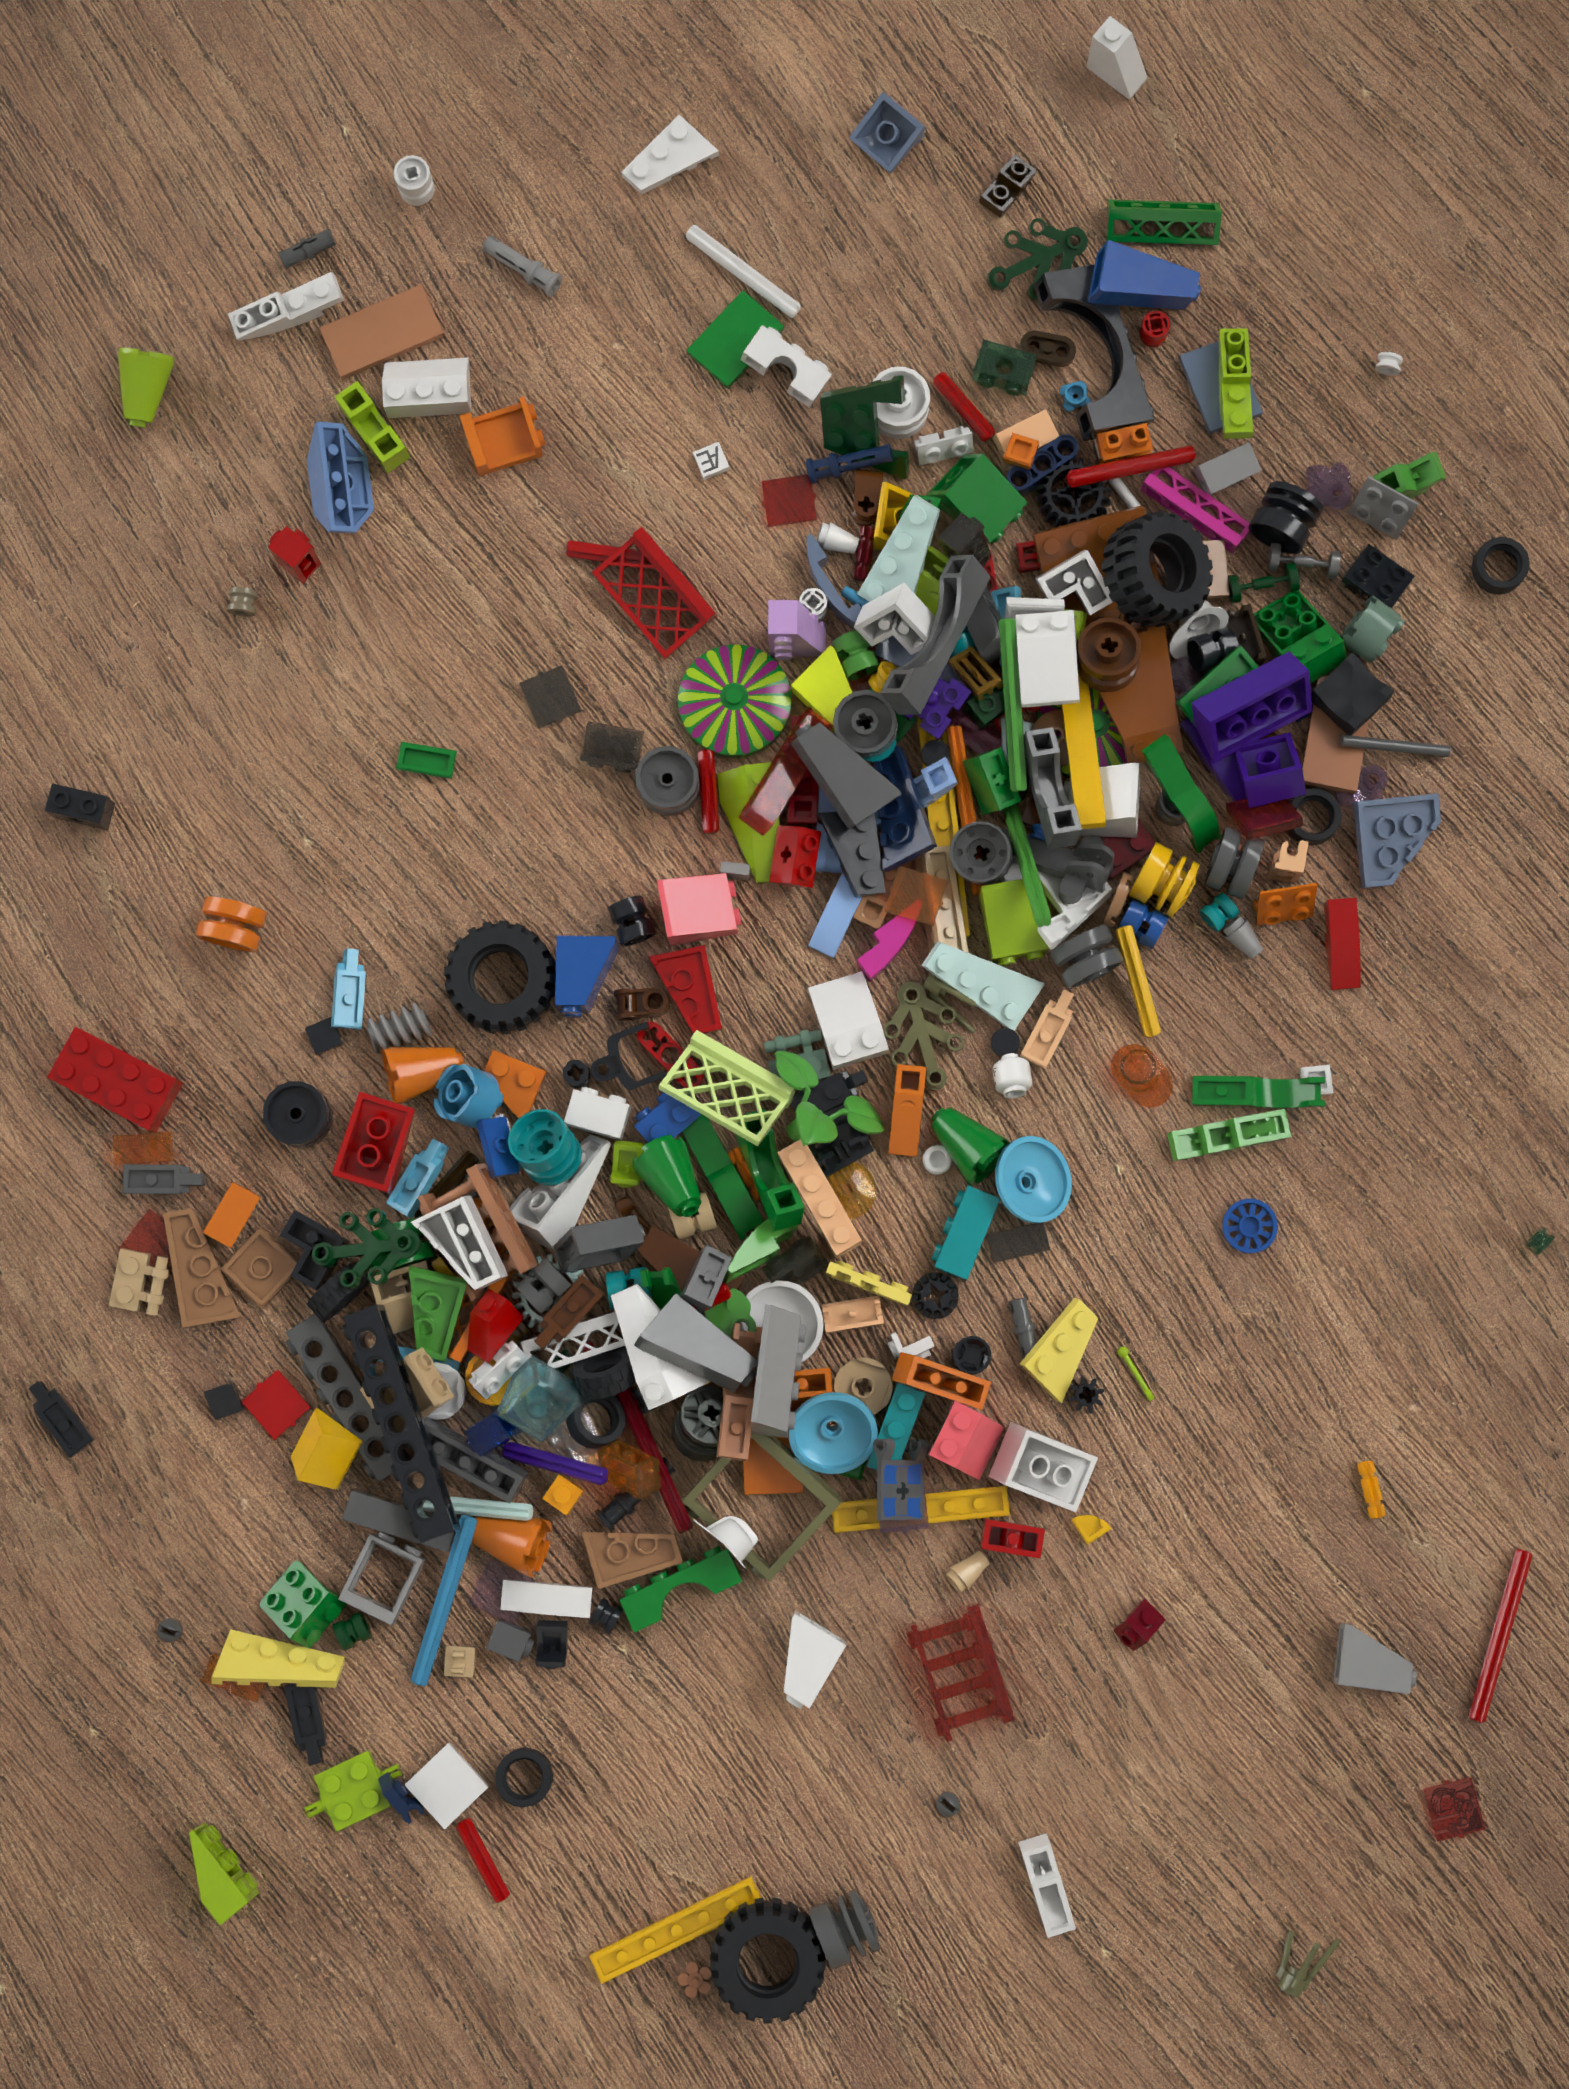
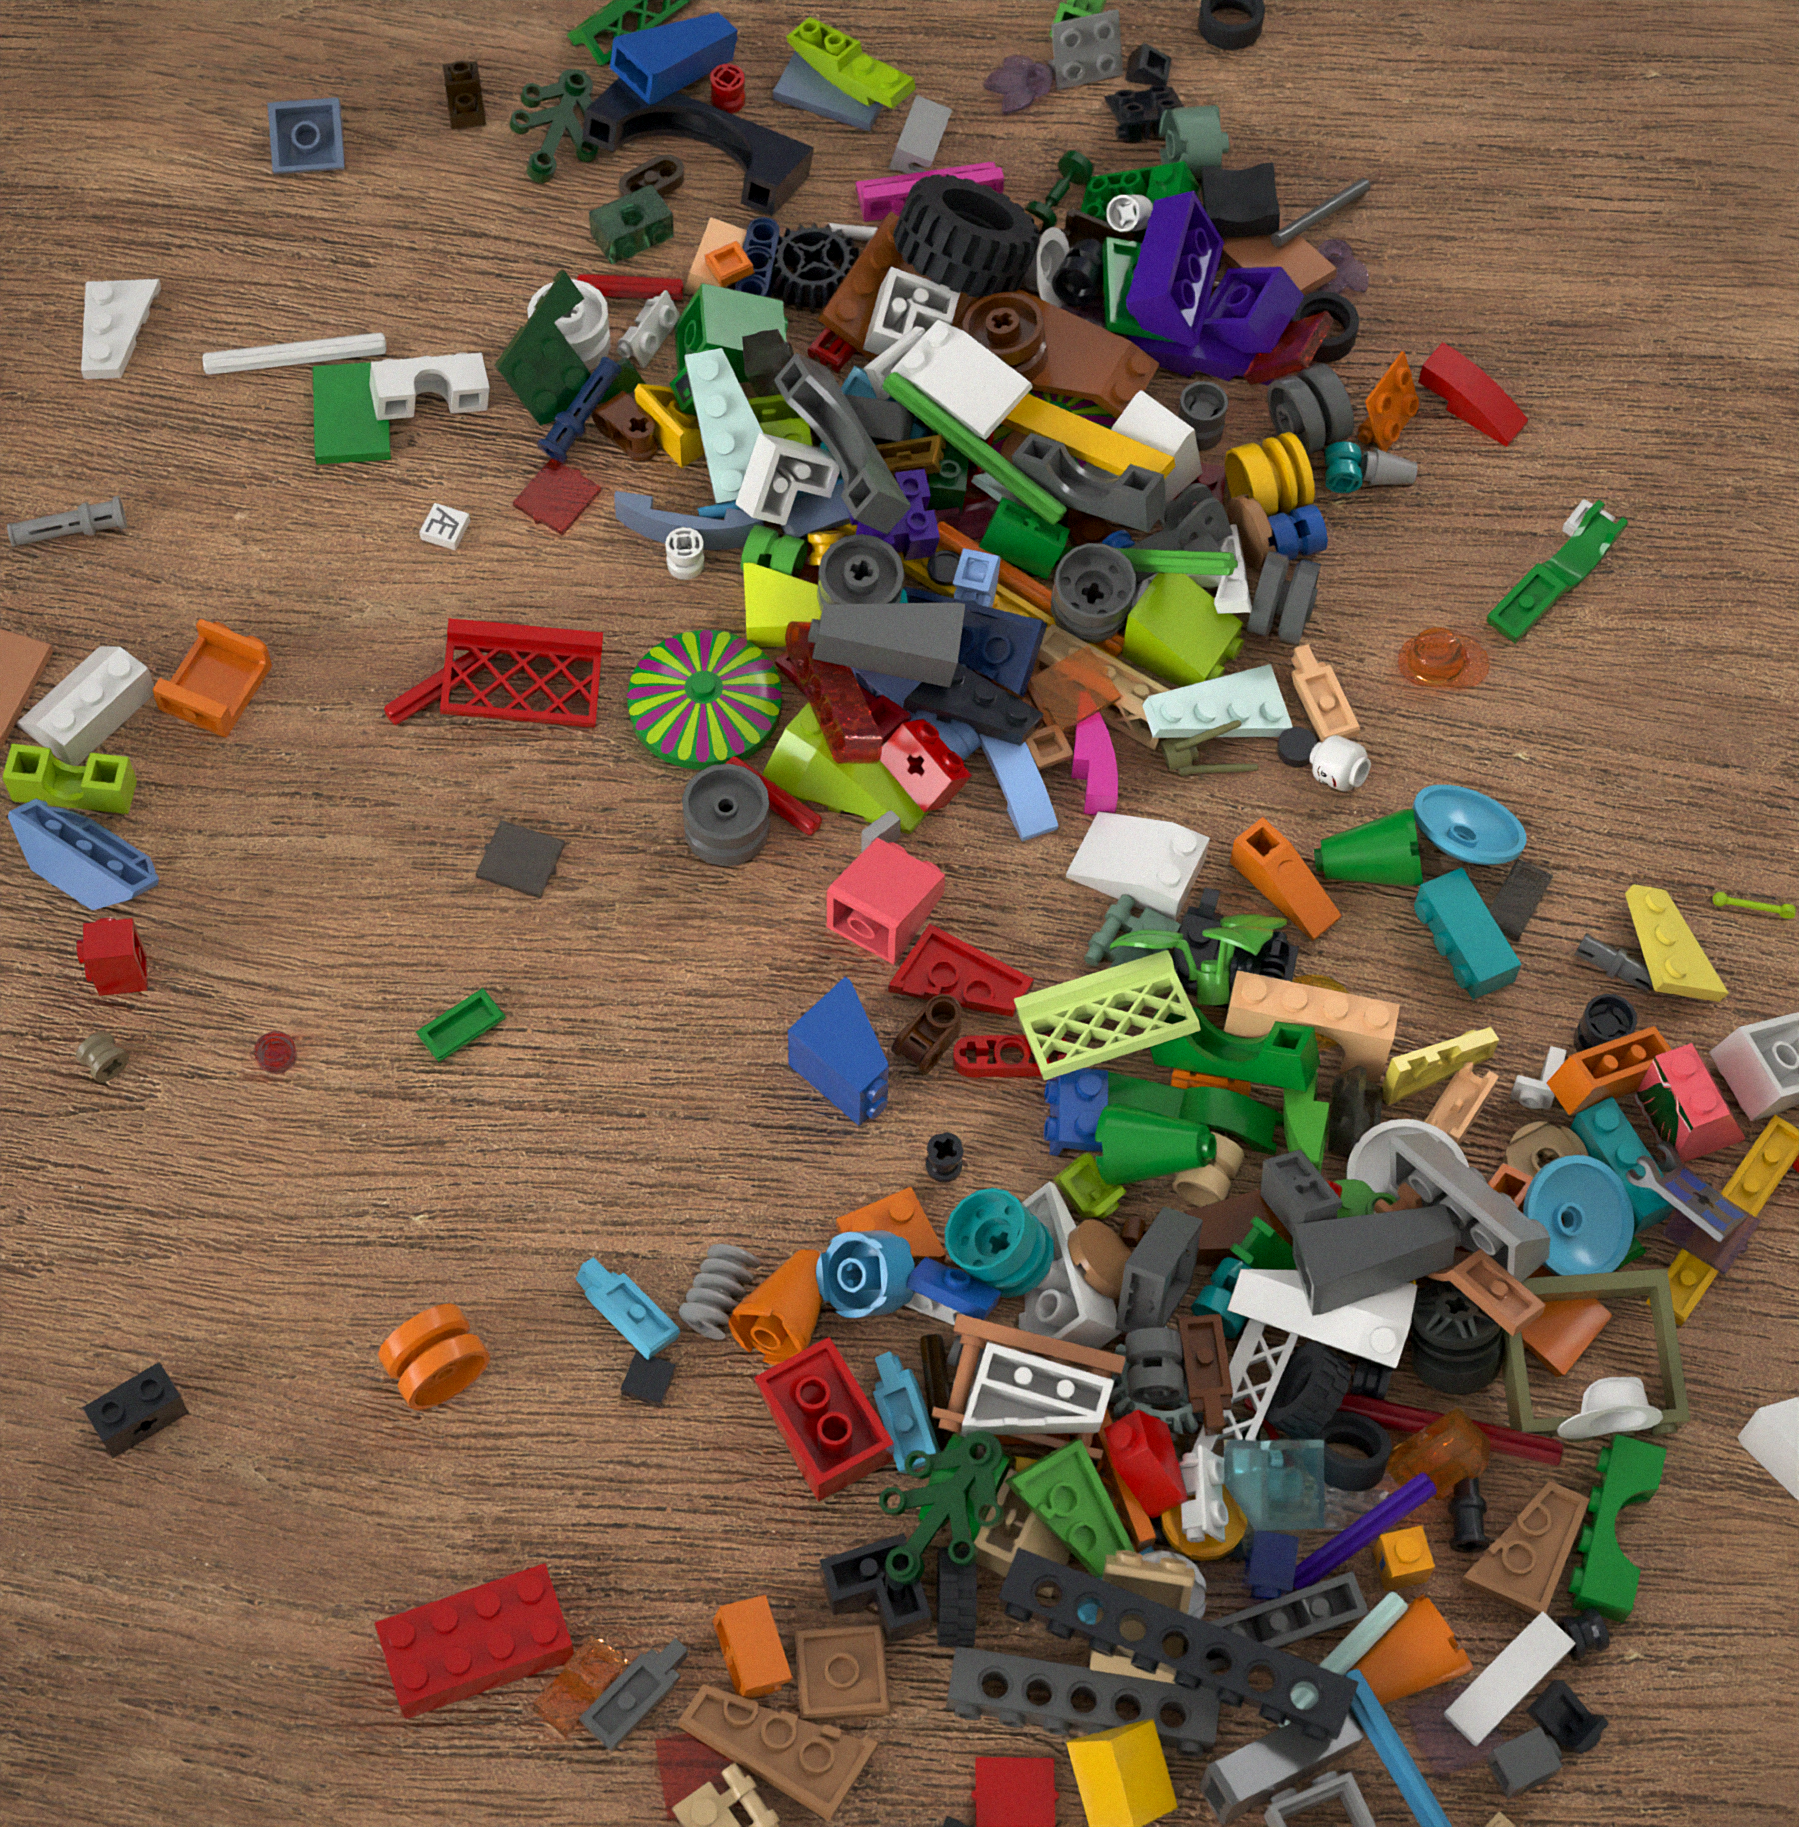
camera: 55 degrees left, 20 degrees down
(281, 1109) = (705, 1448): black wheel -> none
(327, 682) = (275, 1052): none -> clear red tile
(479, 945) = (762, 1090): black tyre -> none
(589, 1202) = (1101, 1256): none -> medium nougat tile
(598, 1114) = (1016, 1164): white brick -> none
(612, 747) = (633, 838): clear smoke bracket -> none
(615, 1064) = (973, 1108): black piece -> none
(628, 911) = (822, 962): black wheel -> none
(794, 630) = (692, 581): lavender wedge -> none
(836, 539) = (643, 481): white cone -> none
(864, 552) = (680, 474): dark red axle -> none
(922, 1030) = (1210, 806): olive plant -> none
(930, 1308) = (1516, 1032): black gear -> none
(936, 1160) = (1361, 903): white tile -> none
(1078, 388) = (719, 196): dark azure plate -> none
(1082, 1402) = (1740, 962): black gear -> none
(1125, 442) = (811, 191): orange hips -> none
(1130, 466) = (837, 198): red axle -> none
(1138, 981) = (1351, 580): yellow axle -> none
(1182, 791) = (1200, 387): green piece -> none
(1229, 1134) = (1576, 633): bright green slope -> none
(1250, 1225) = (1686, 690): blue wheel -> none
(1272, 642) = (1122, 213): none -> white wheel
(1285, 517) = (1018, 122): black wheel -> none
(1288, 866) = (1359, 364): light nougat hinge -> none
(1304, 561) = (1096, 130): flat silver wheel -> none
(1392, 834) = (1404, 280): sand blue plate -> none
(1415, 550) = (1148, 66): none -> black slope

